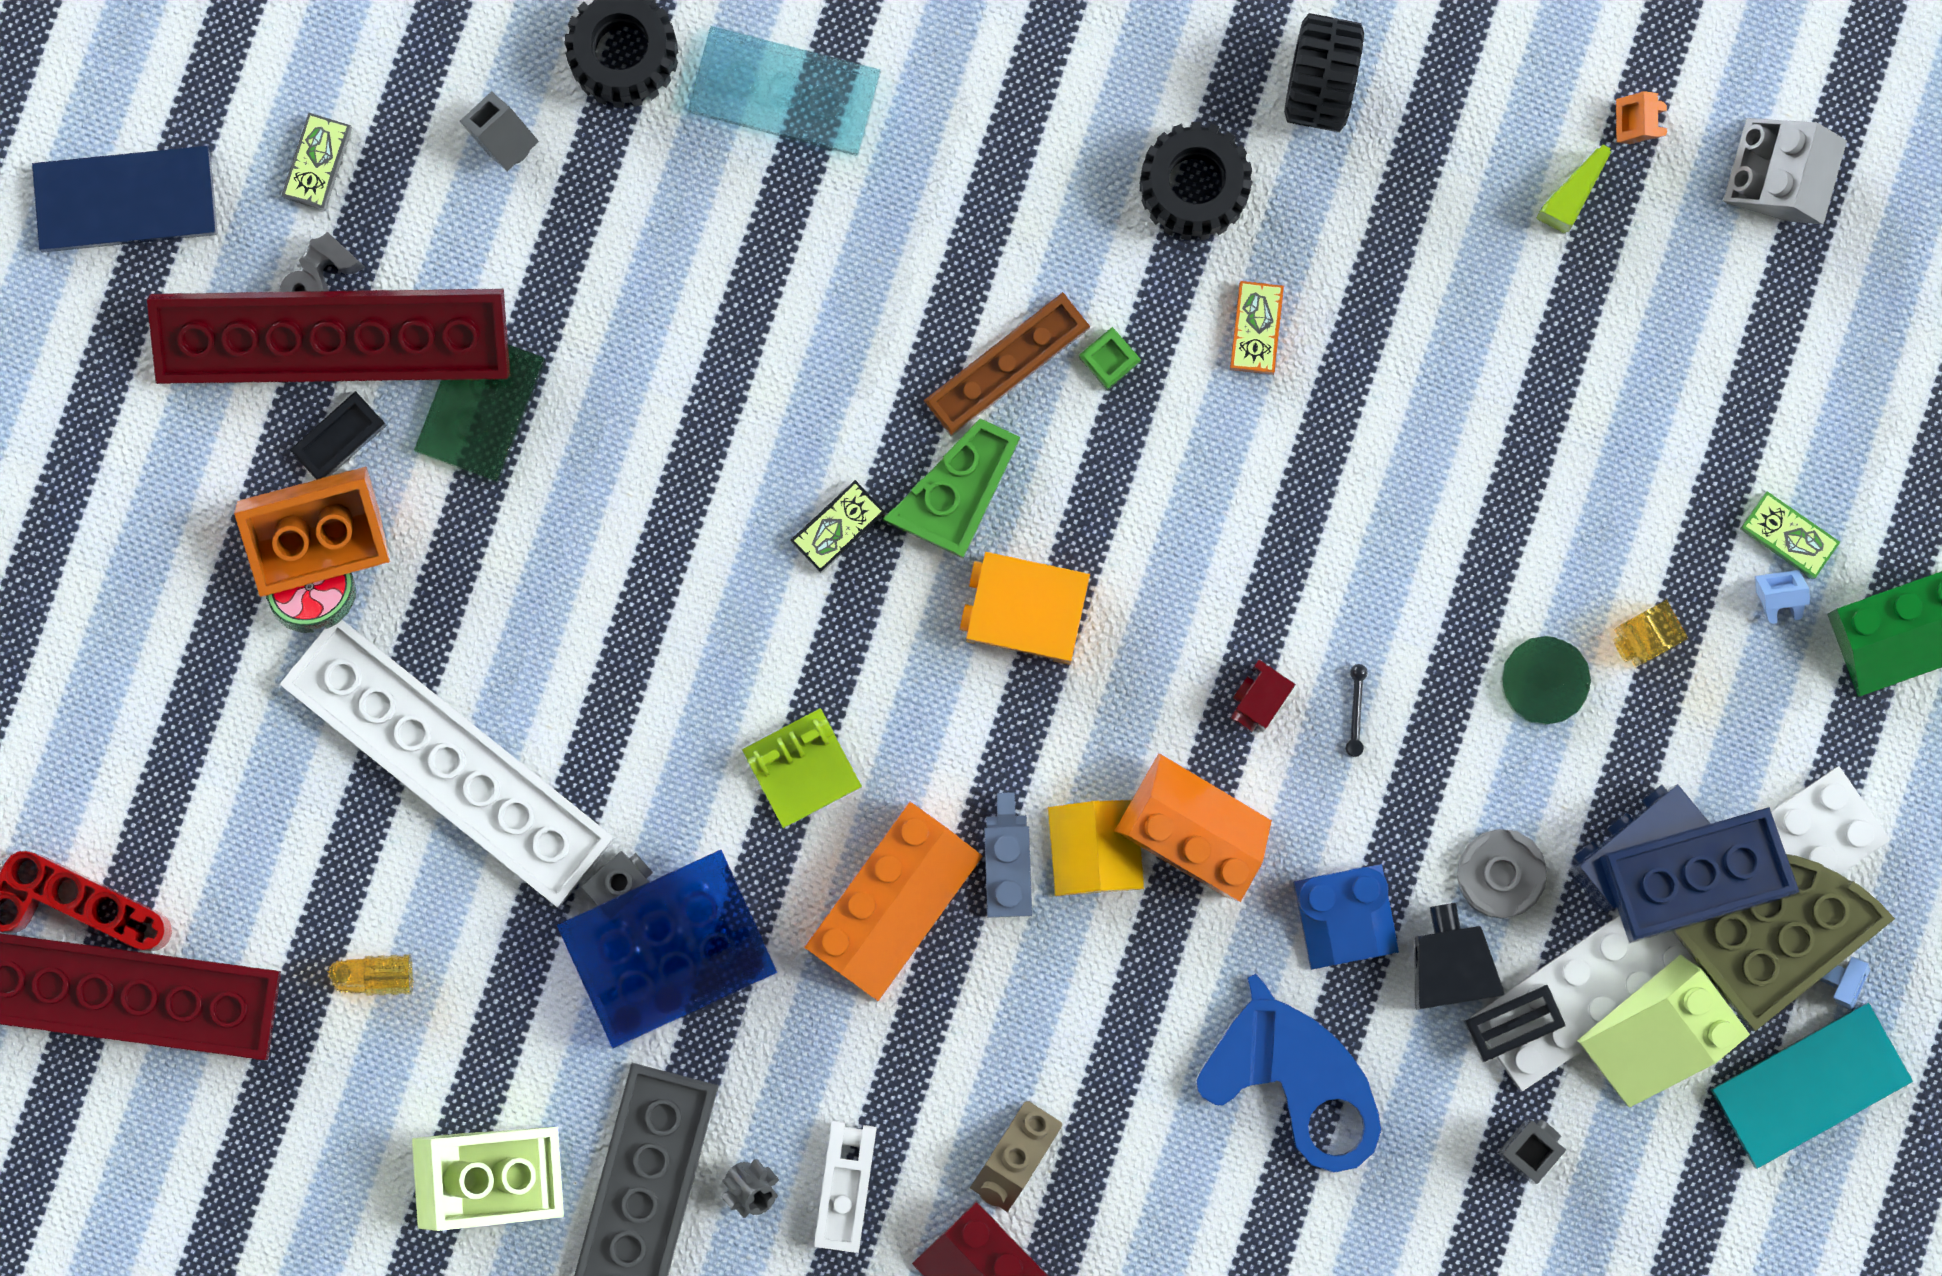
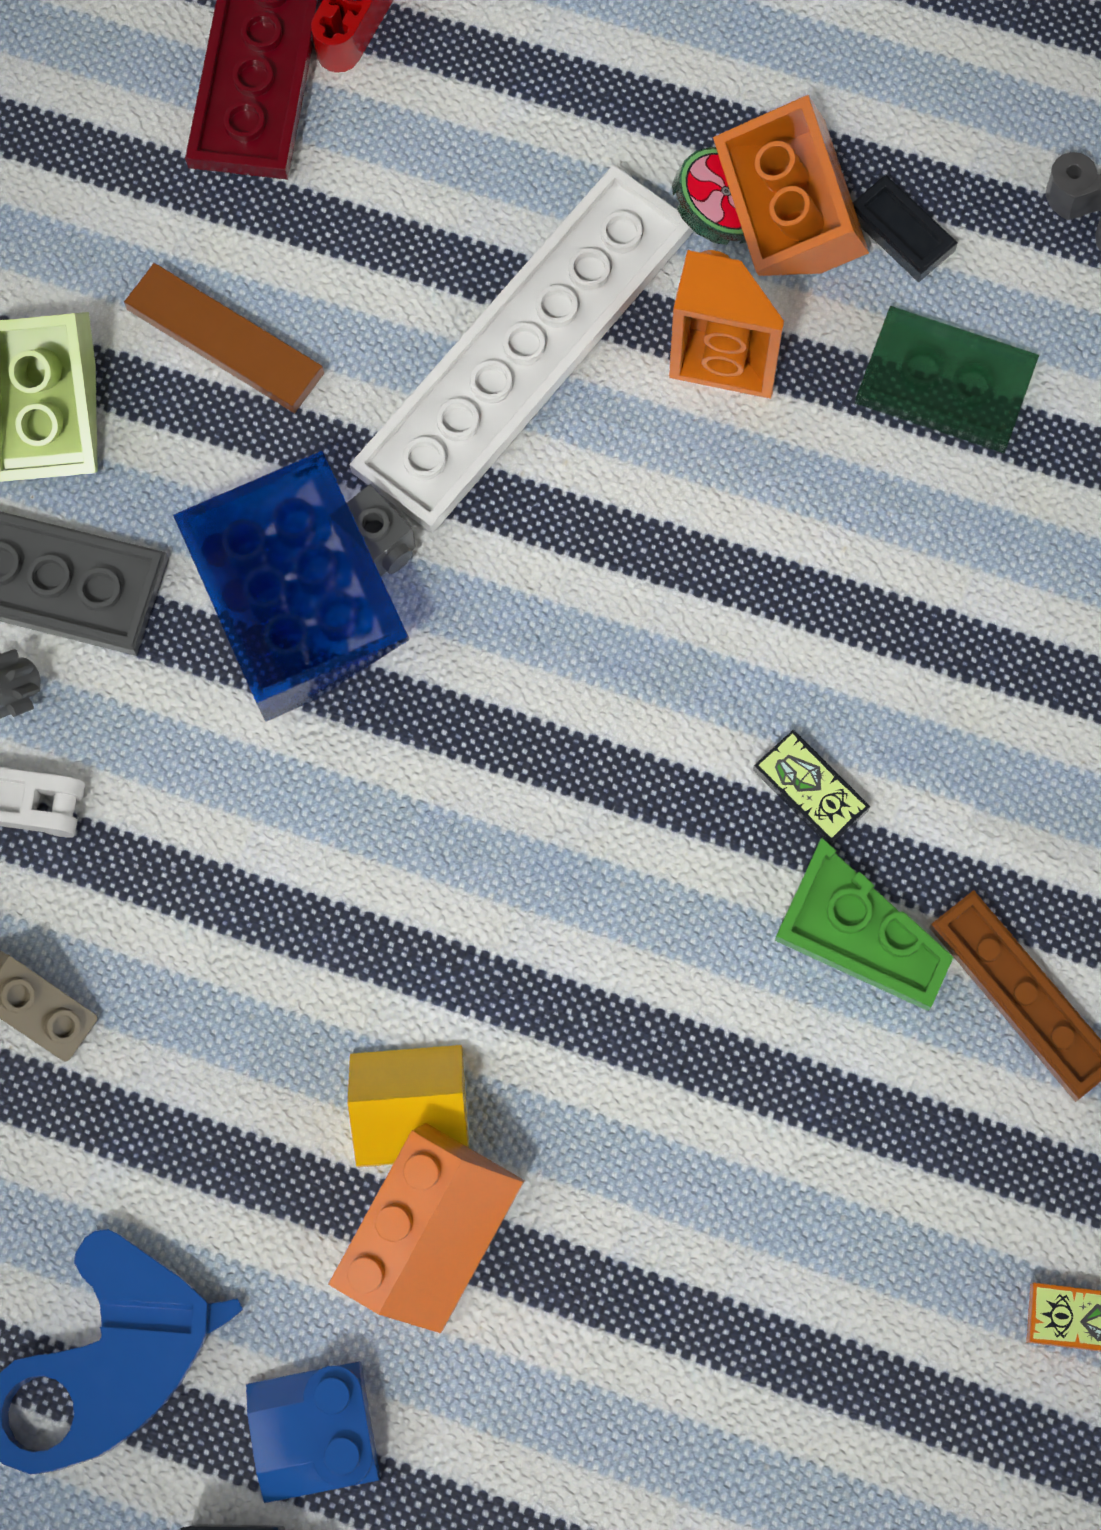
camera: 95 degrees right, 10 degrees down
(329, 336) = (1022, 208): dark red plate -> none
(374, 975) = (277, 273): clear yellow hinge -> none
(432, 1022) = (224, 337): none -> dark orange tile
(449, 589) = (724, 327): none -> orange slope
(801, 768) = (513, 745): lime hinge -> none
(893, 901) = (346, 851): orange slope -> none
(1007, 861) = (394, 994): sand blue hinge -> none
(1025, 606) = (712, 1015): light orange panel -> none
(1109, 358) = (1038, 1126): bright green tile -> none
(1261, 698) = (597, 1318): dark red brick -> none
(1355, 747) = (535, 1447): black hinge -> none

